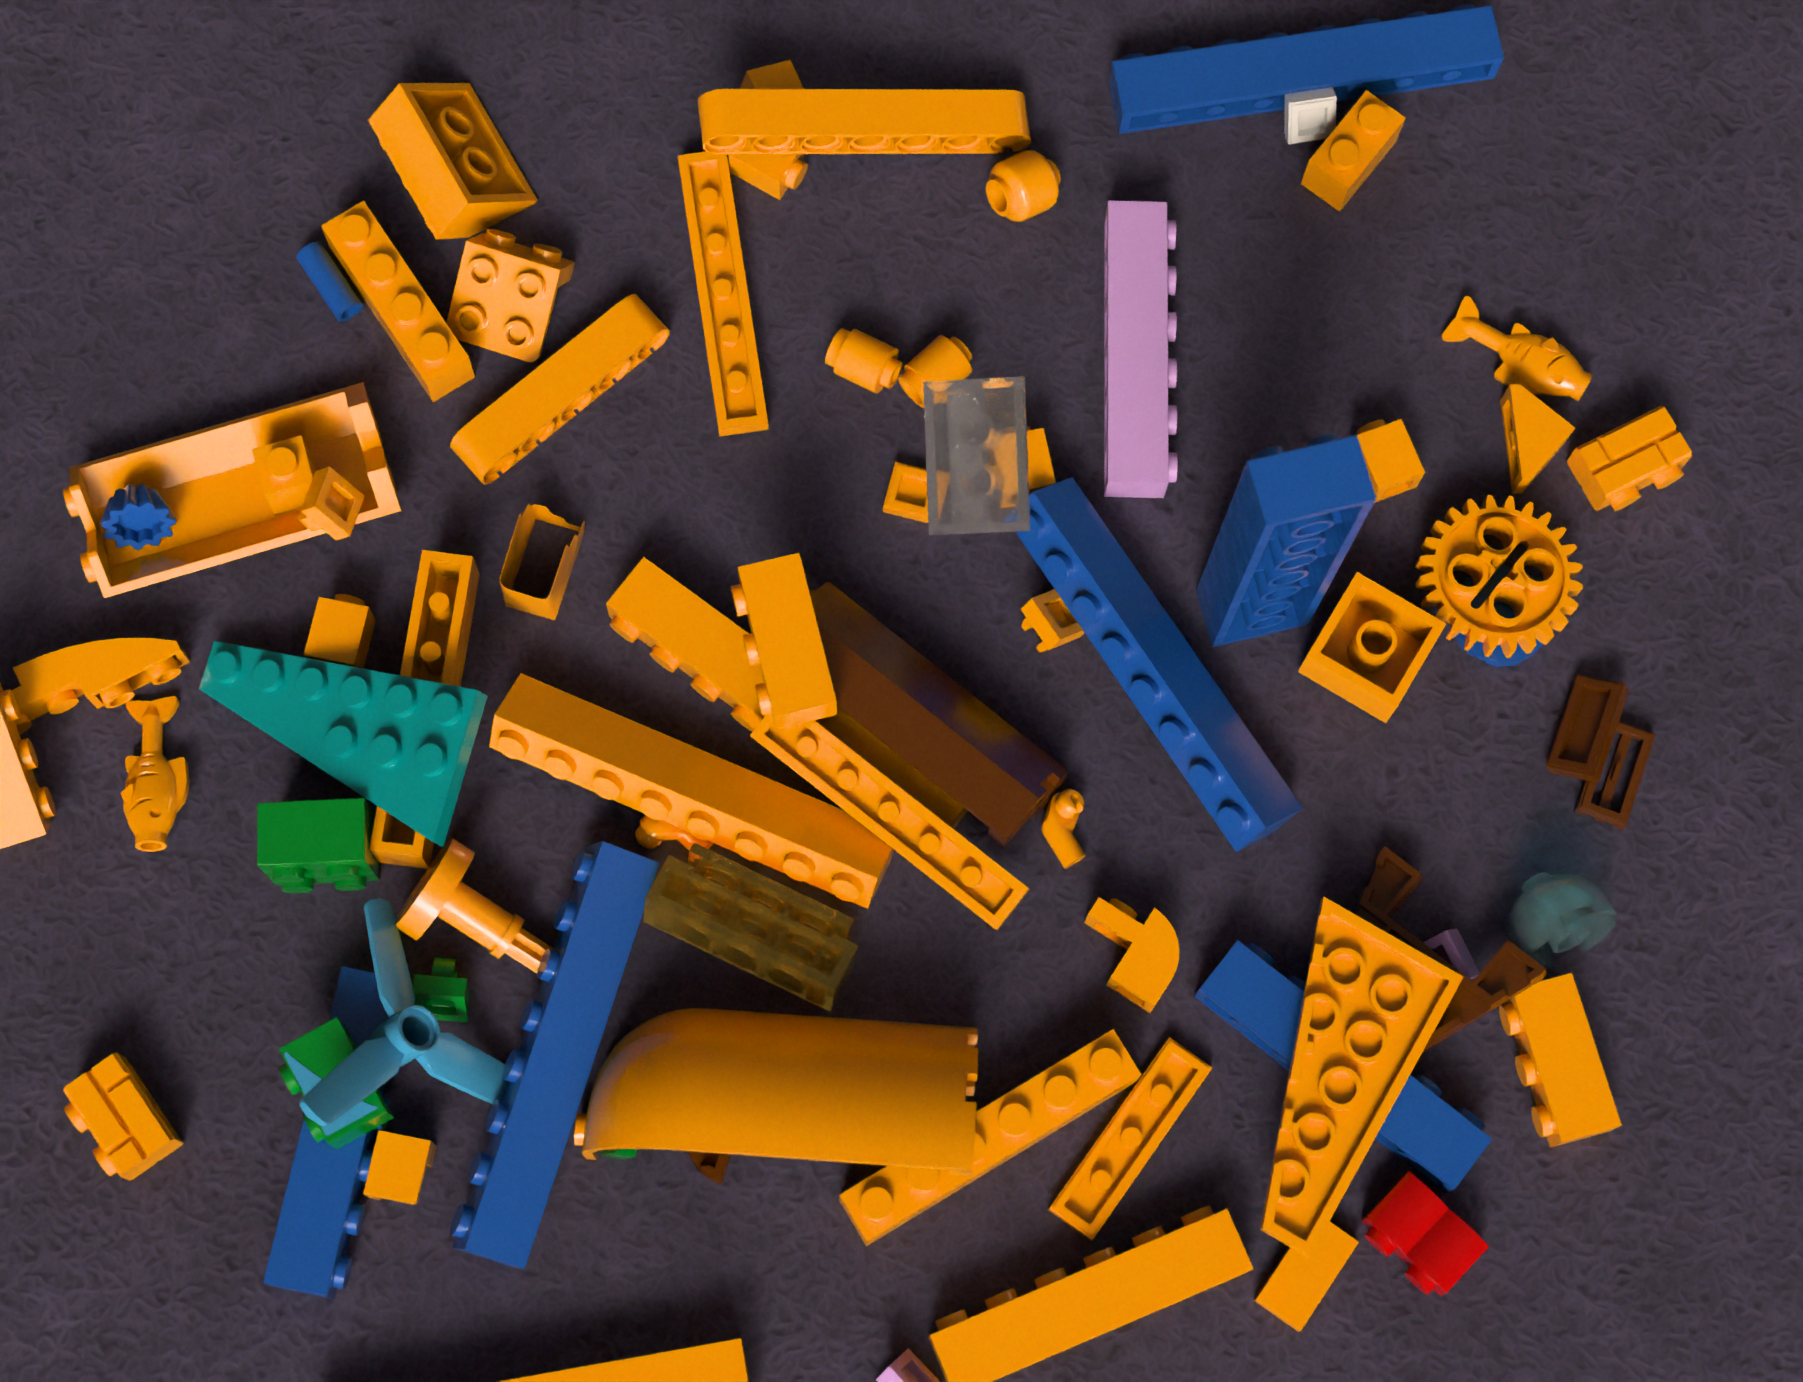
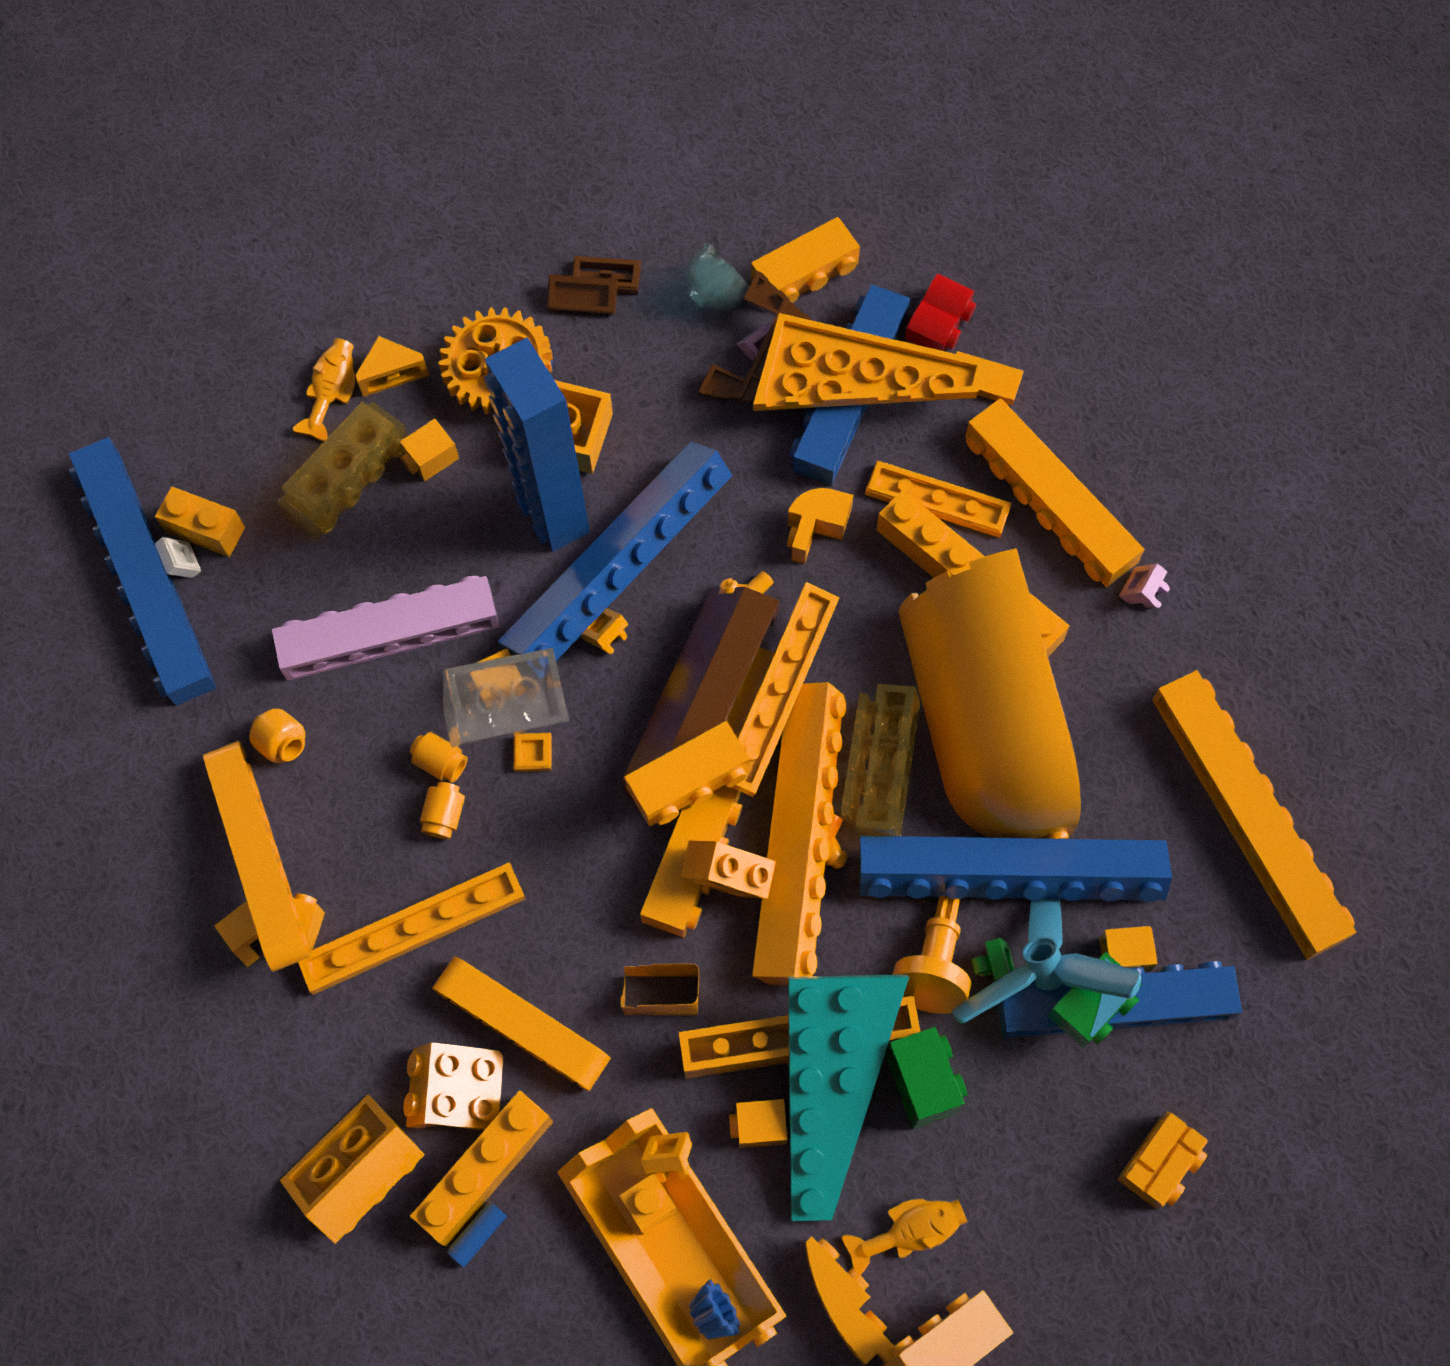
camera: 100 degrees left, 5 degrees down
(661, 675) = (728, 869): none -> light orange brick
(1388, 319) = (342, 469): none -> clear yellow brick
(1630, 459) = (388, 305): light orange brick -> none

